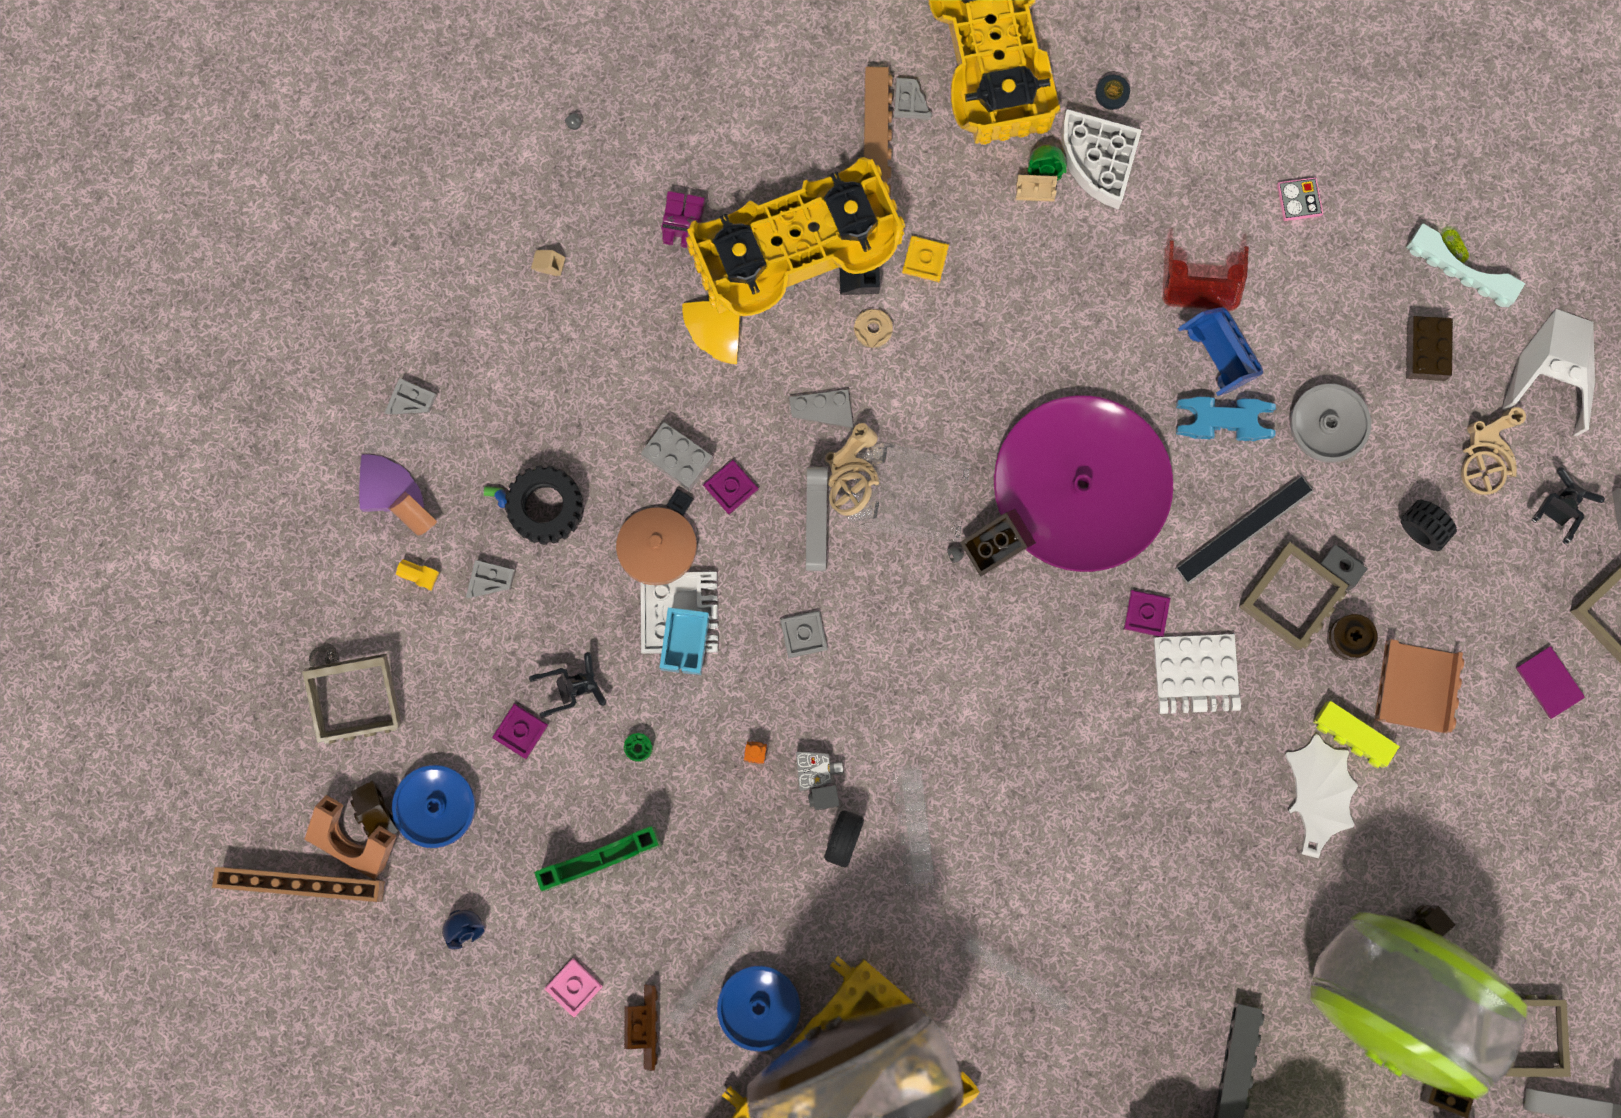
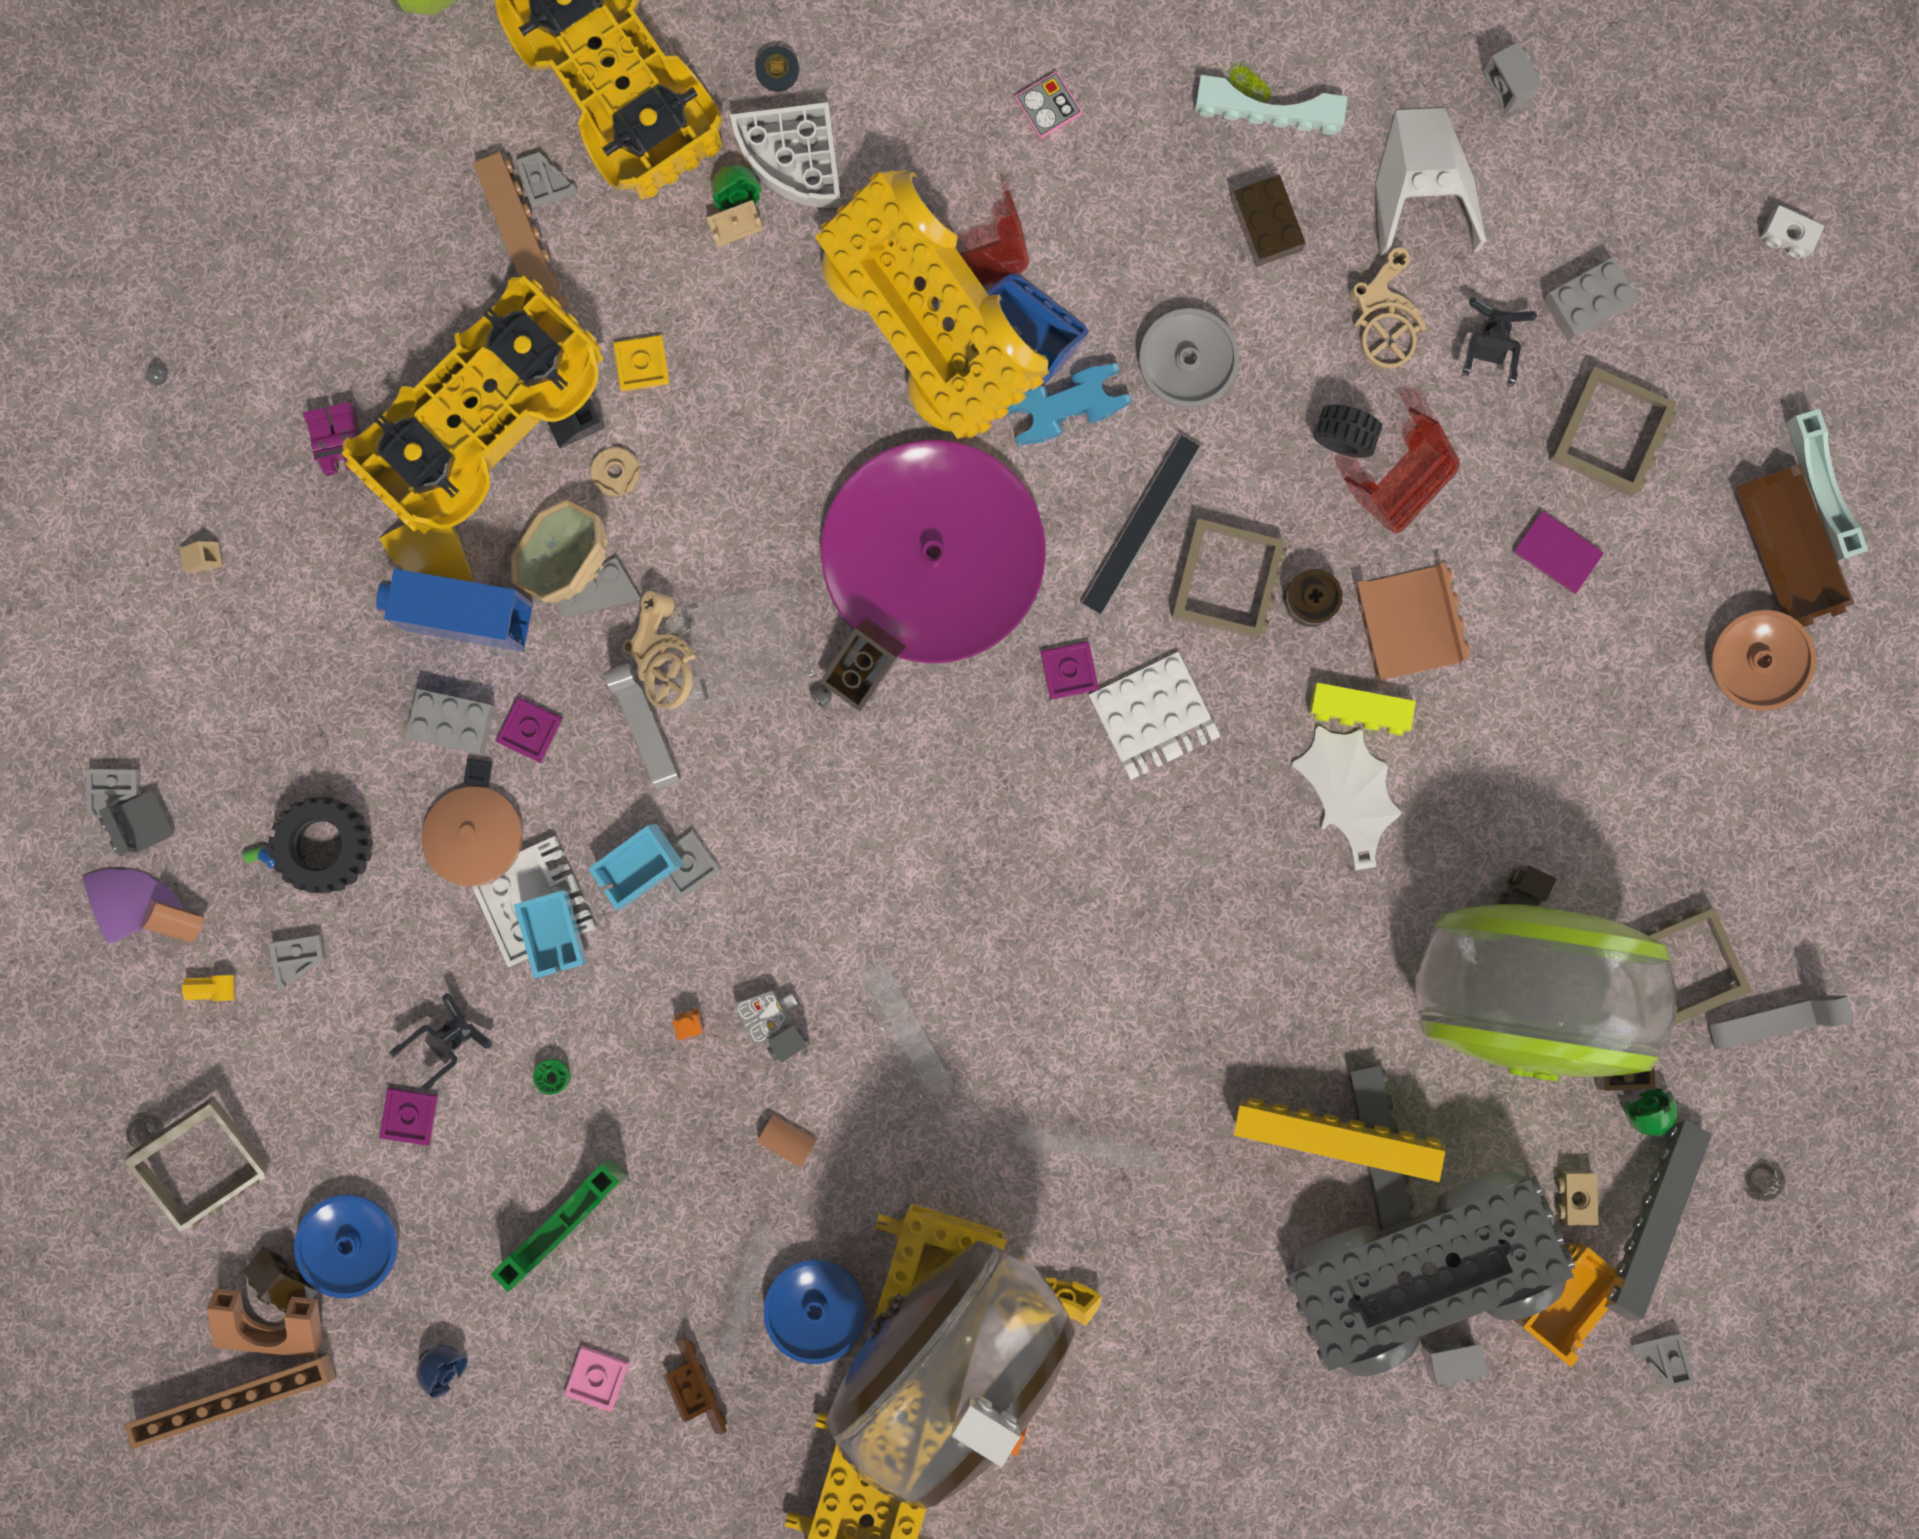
camera: 20 degrees left, 5 degrees up
(418, 433) = (136, 824): none -> dark grey bracket
(718, 376) = (455, 609): none -> blue brick
(768, 619) = (636, 866): none -> medium azure piece
(791, 871) = (787, 1140): none -> nougat brick
(810, 367) = (559, 552): none -> clear light blue rock
(844, 838) = (829, 1080): black tyre -> none
(1125, 256) = (871, 262): none -> yellow piece
(1214, 1054) = (1340, 1140): none -> yellow brick
(1354, 567) = (1283, 514): dark grey brick -> none
(1463, 582) = (1413, 480): none -> clear red windscreen

